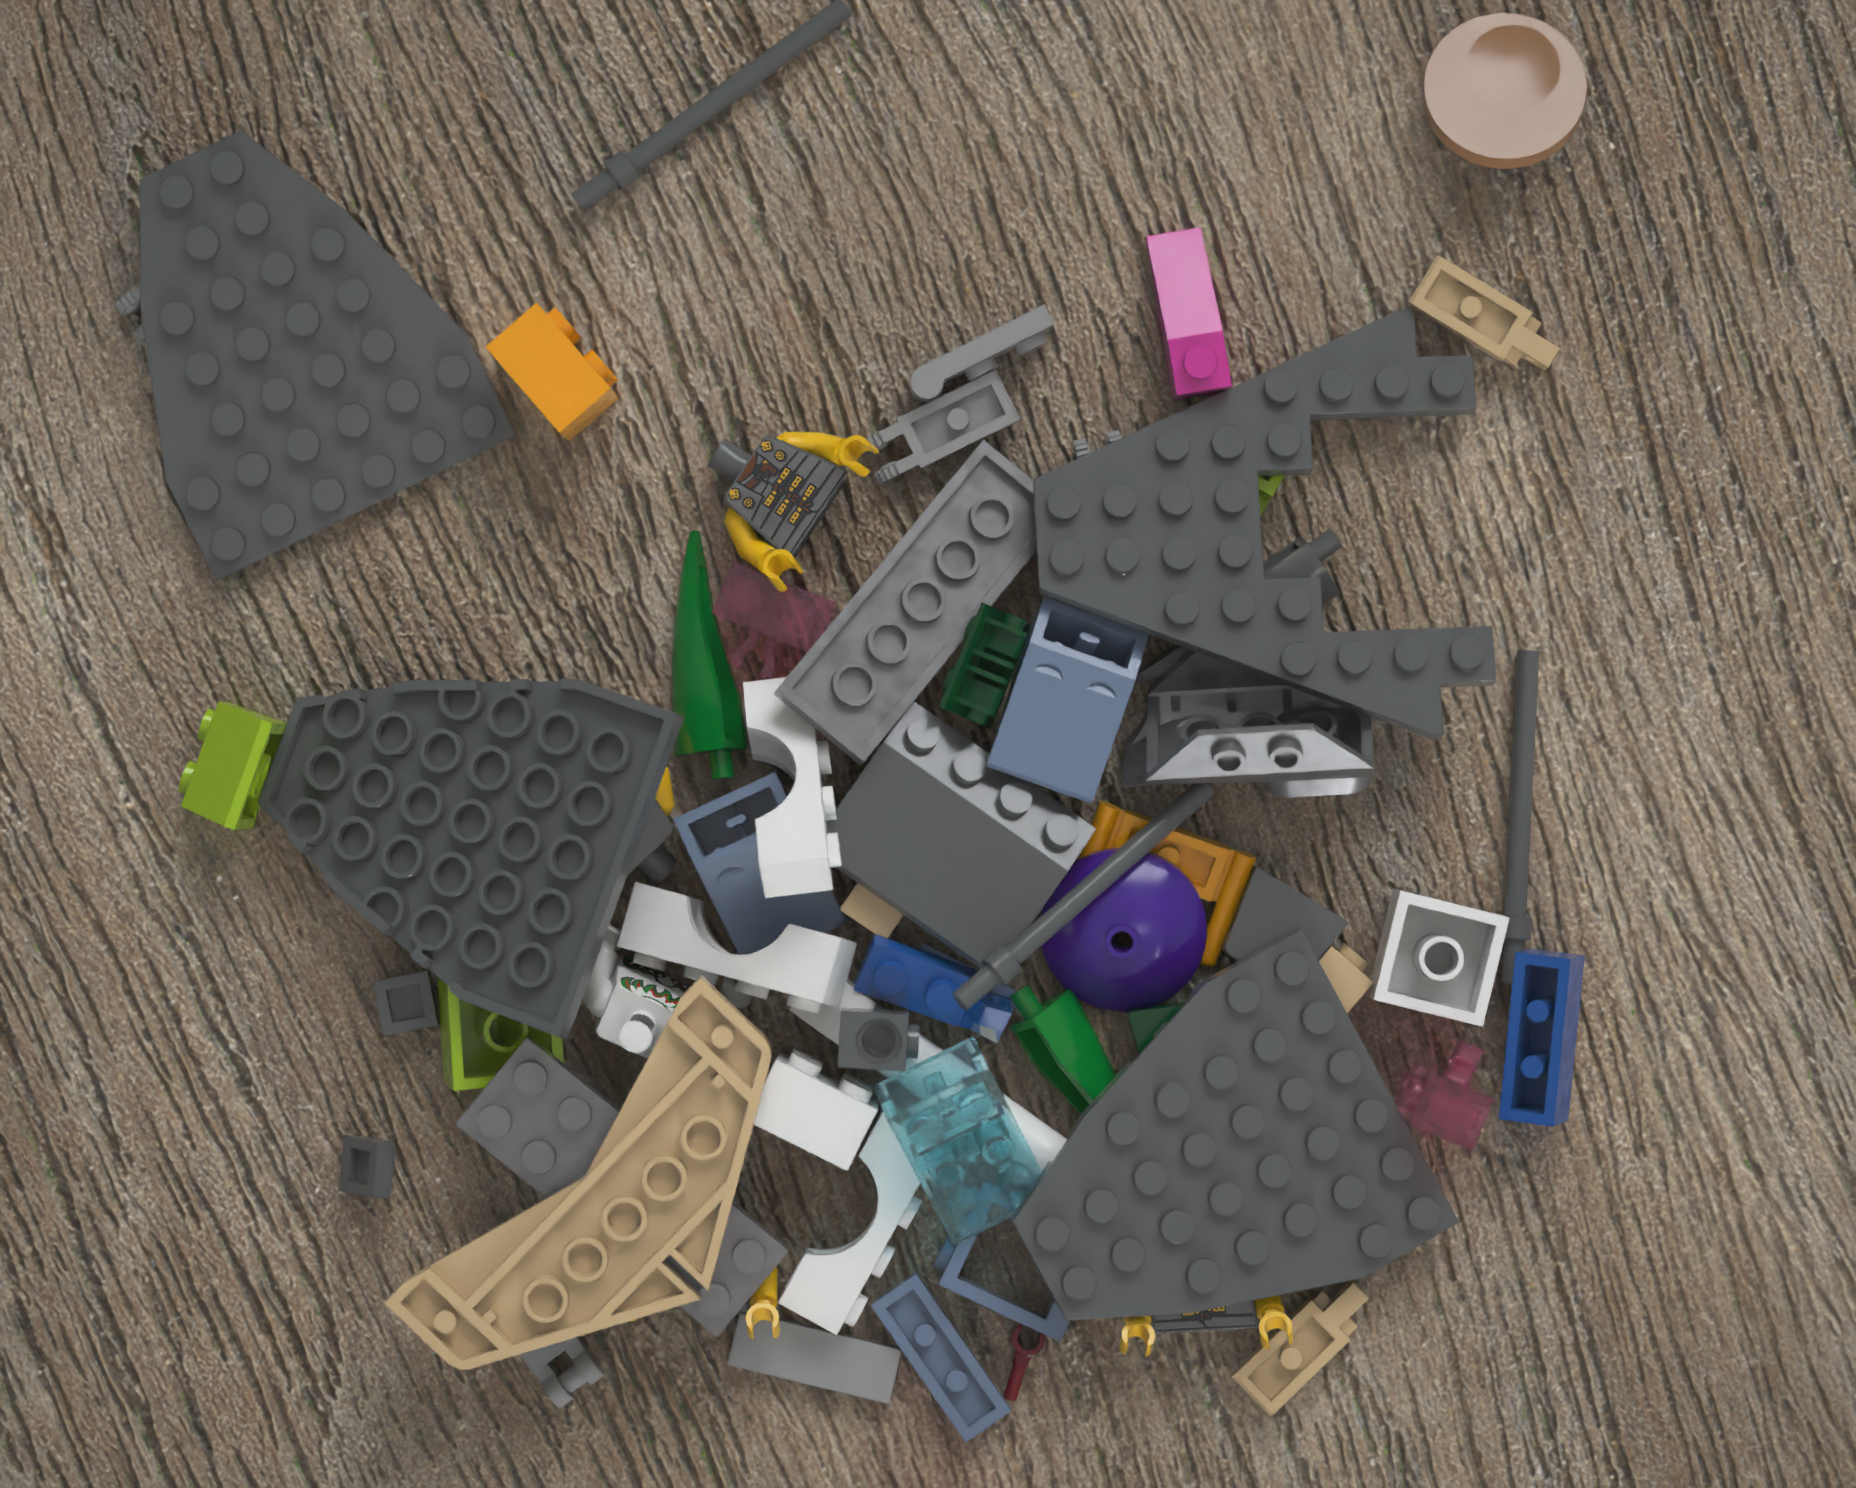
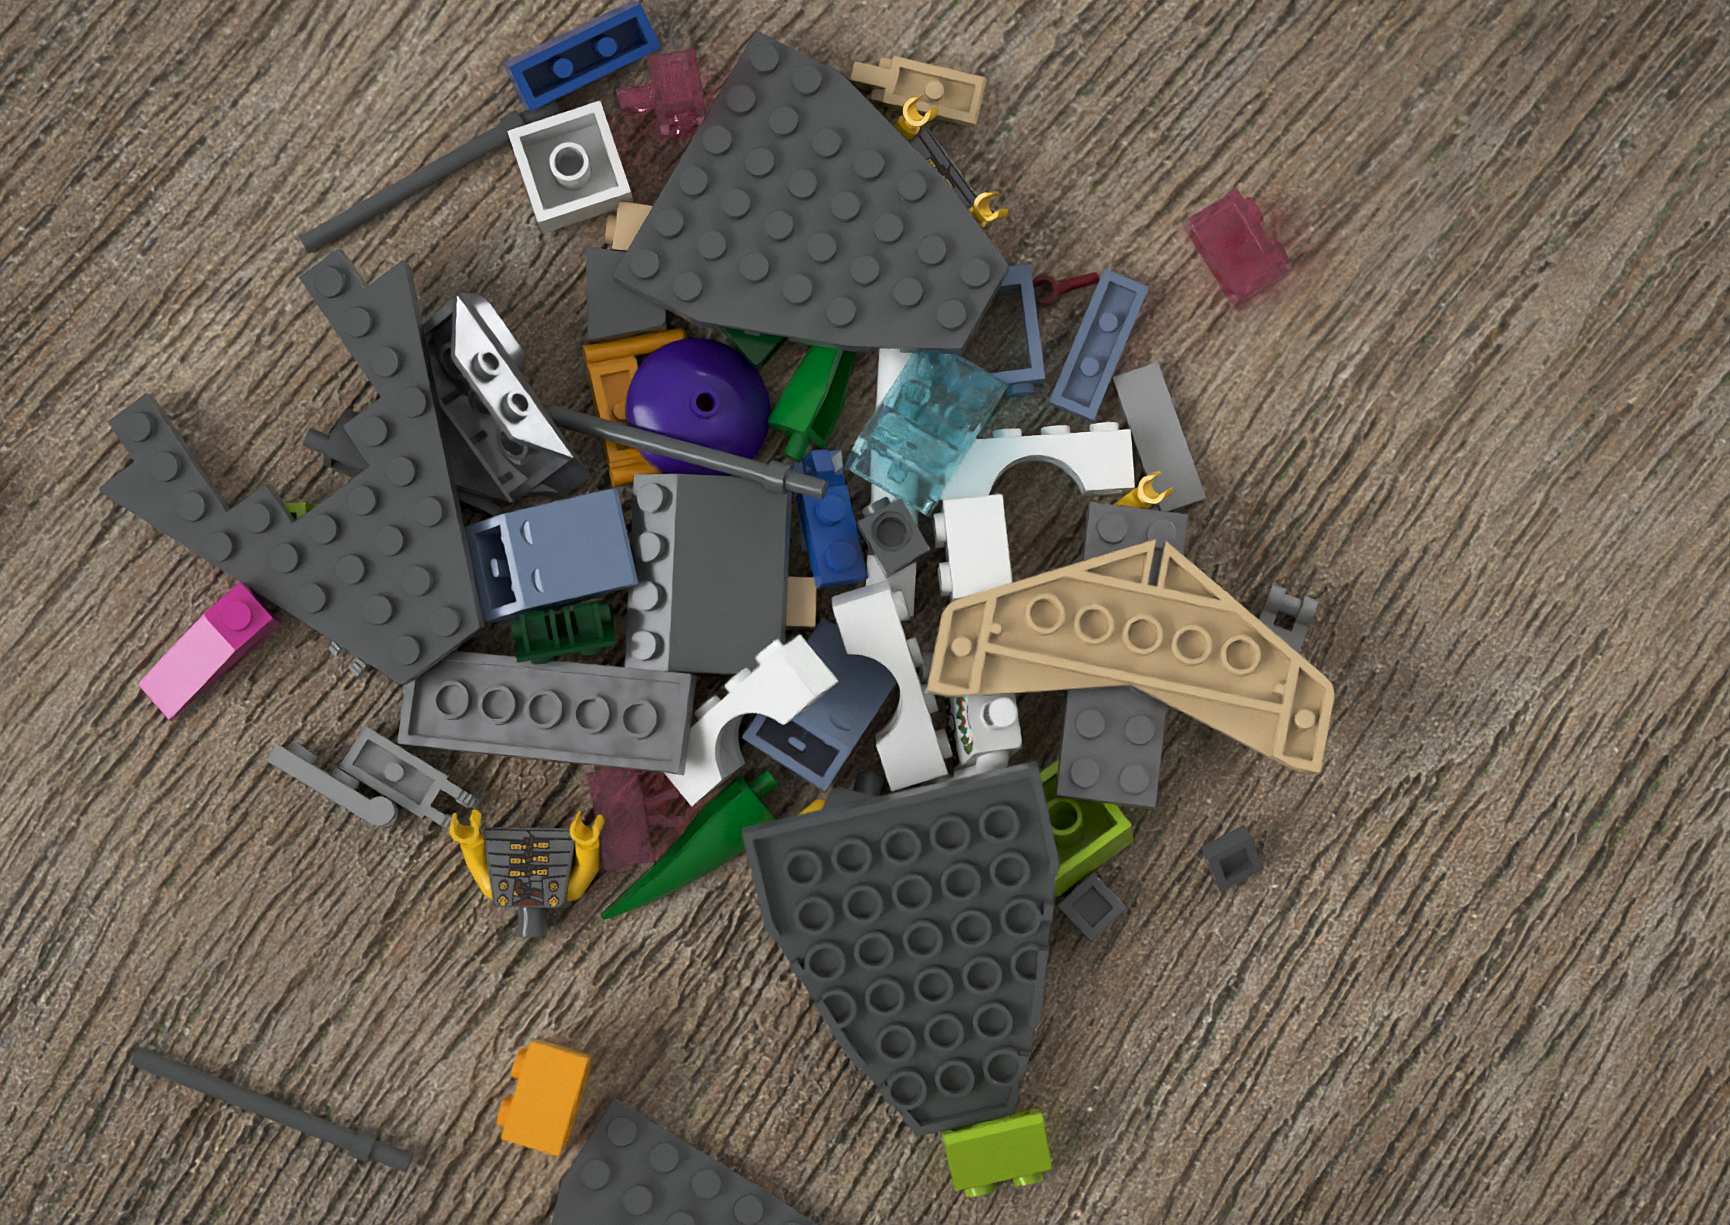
camera: 125 degrees left, 5 degrees down
(1481, 315) = (74, 434): tan hinge -> none

